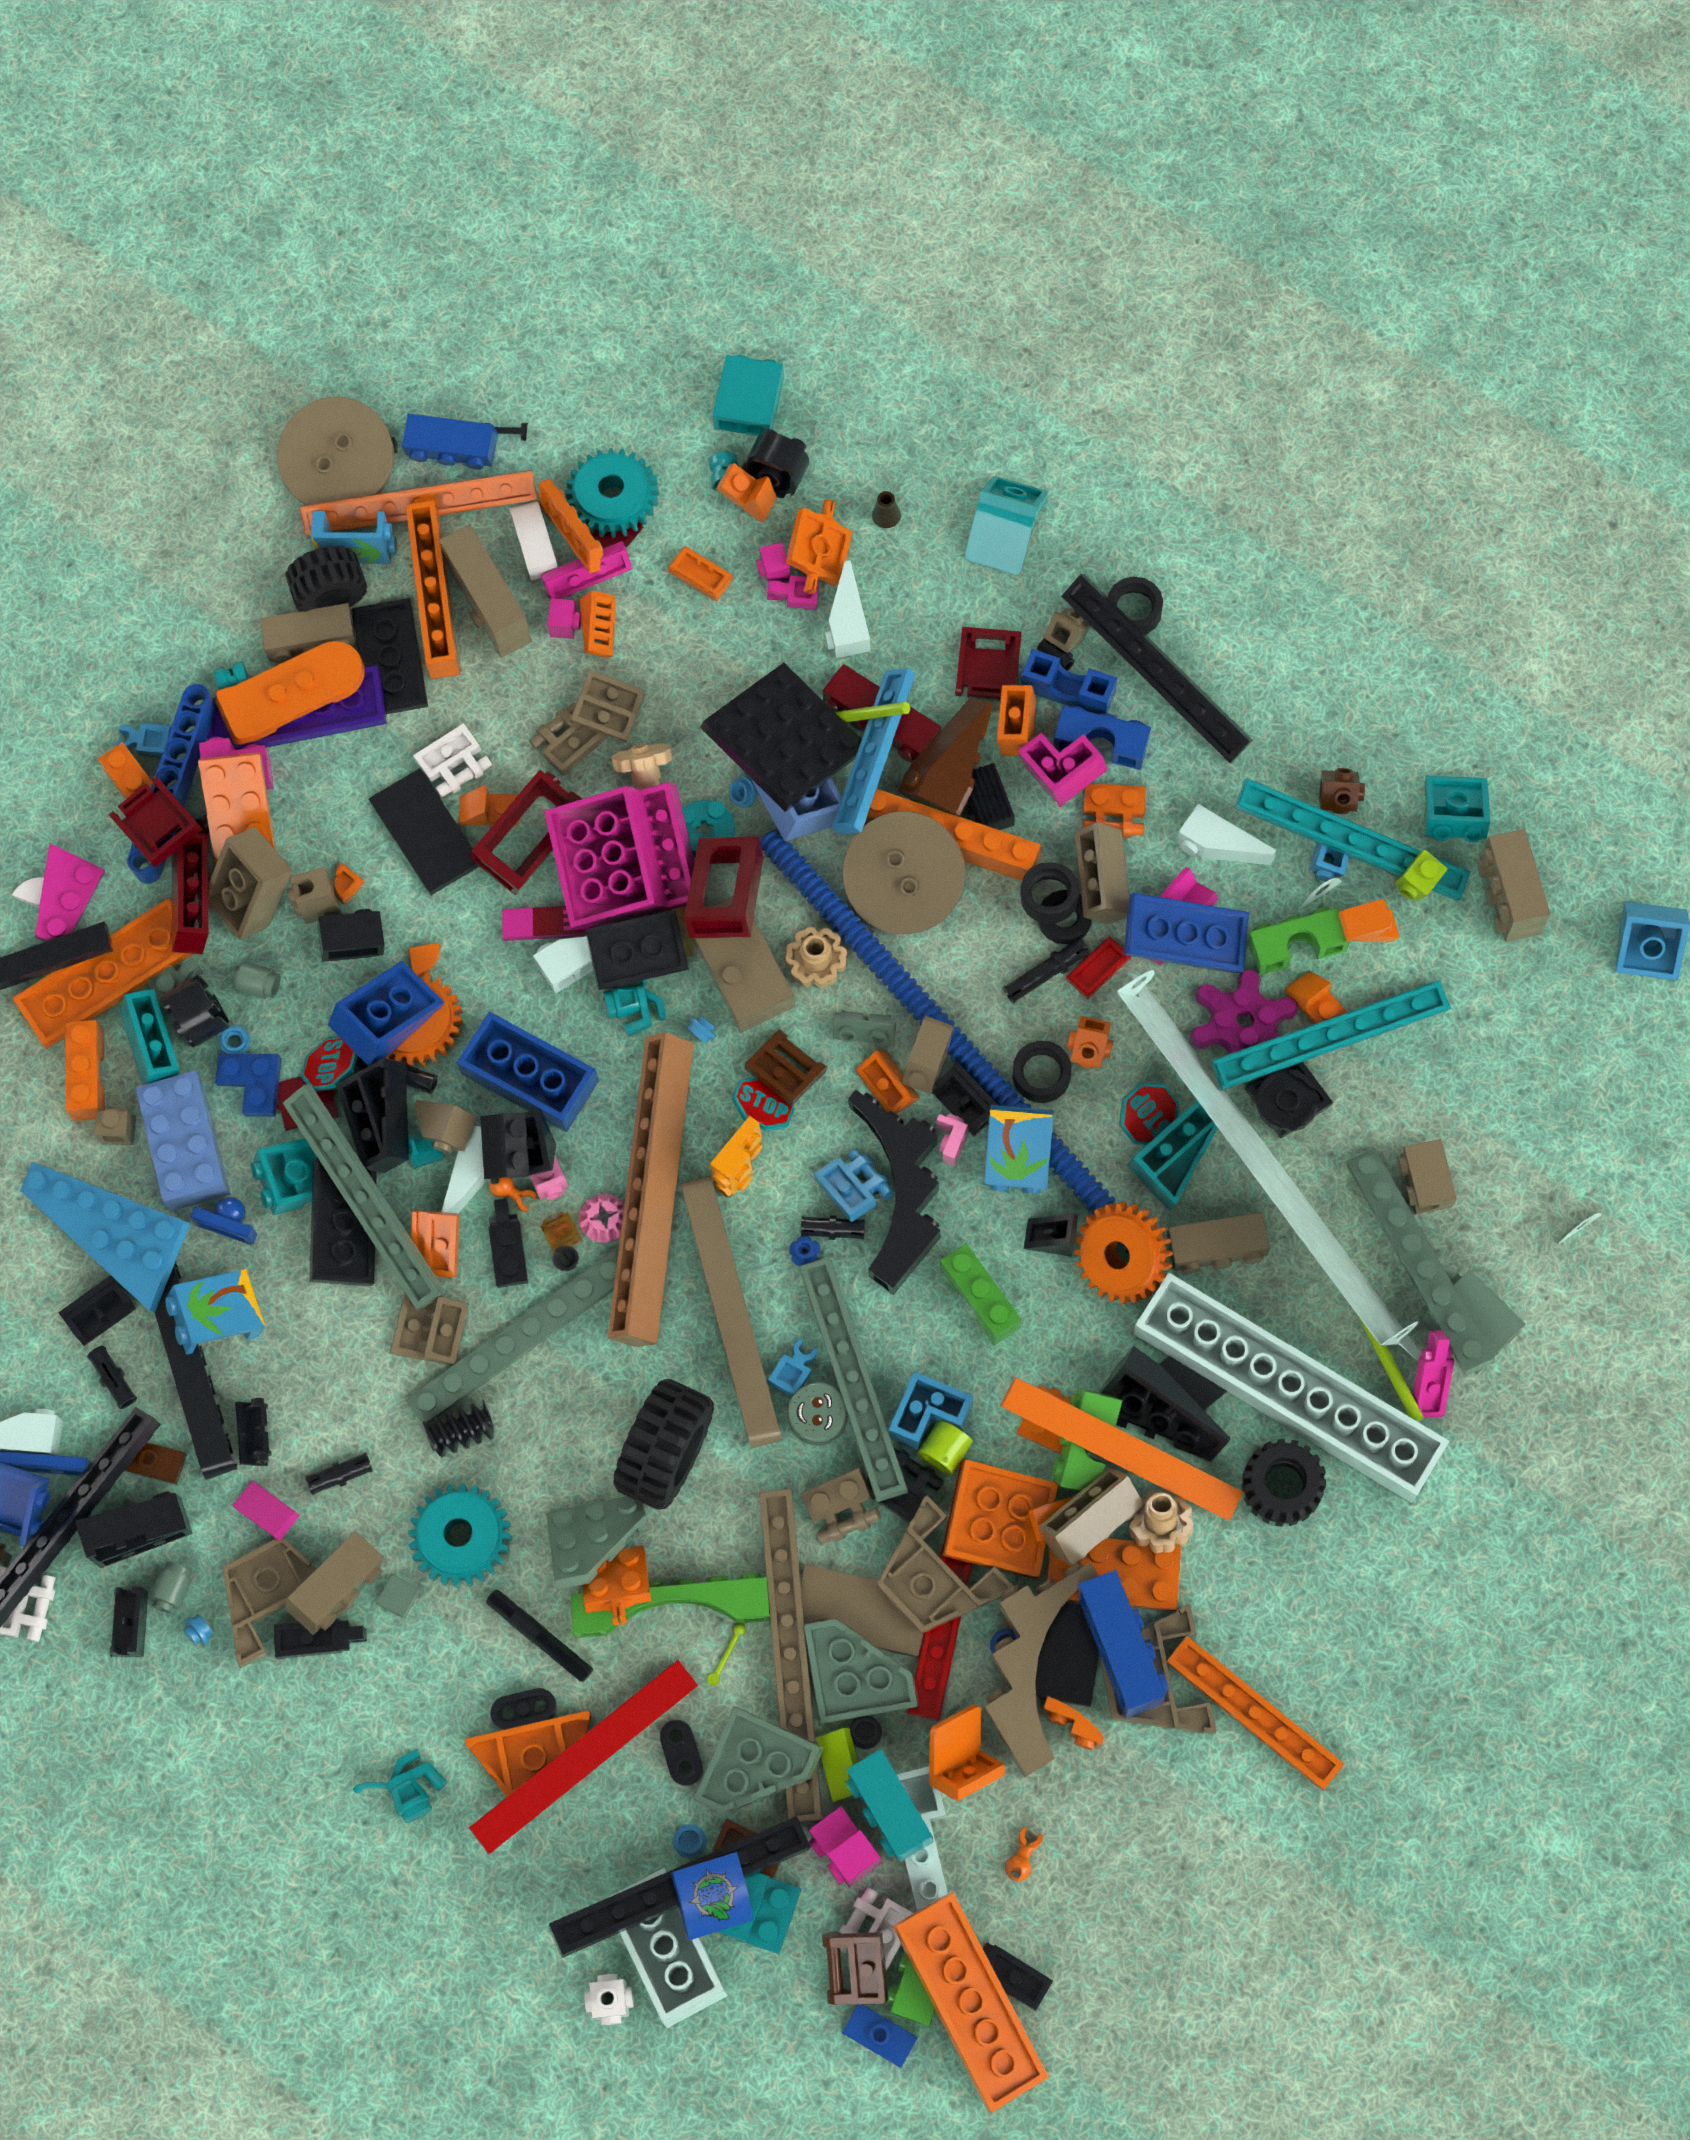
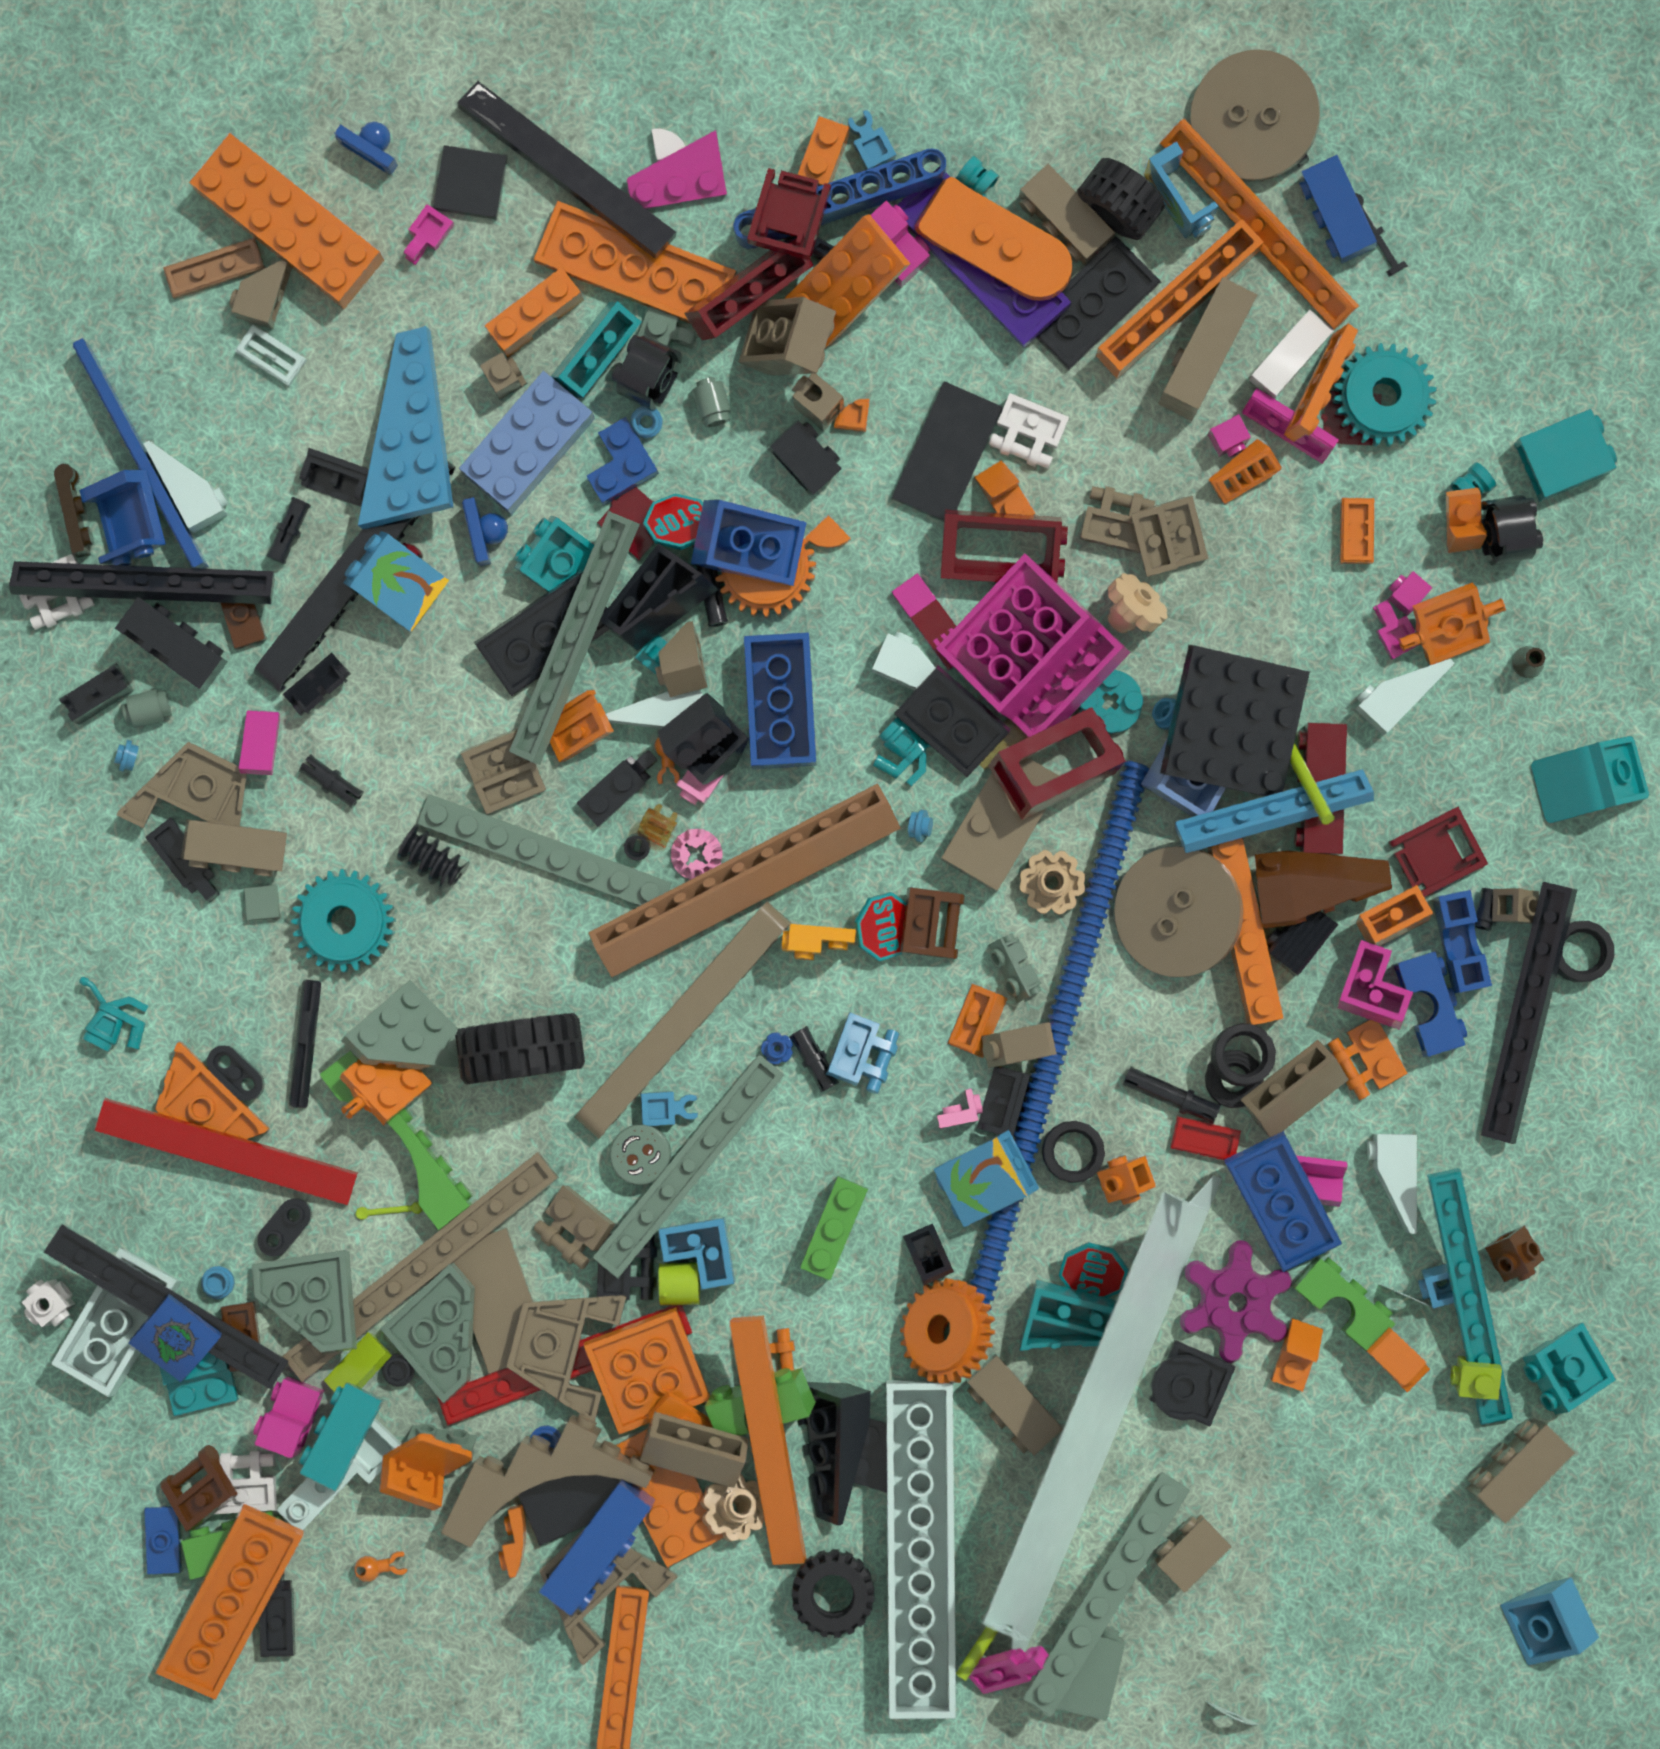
camera: 60 degrees right, 15 degrees up
(906, 1148) = (925, 1077): black arch -> none
(1330, 1035) = (1271, 1388): teal tile -> none

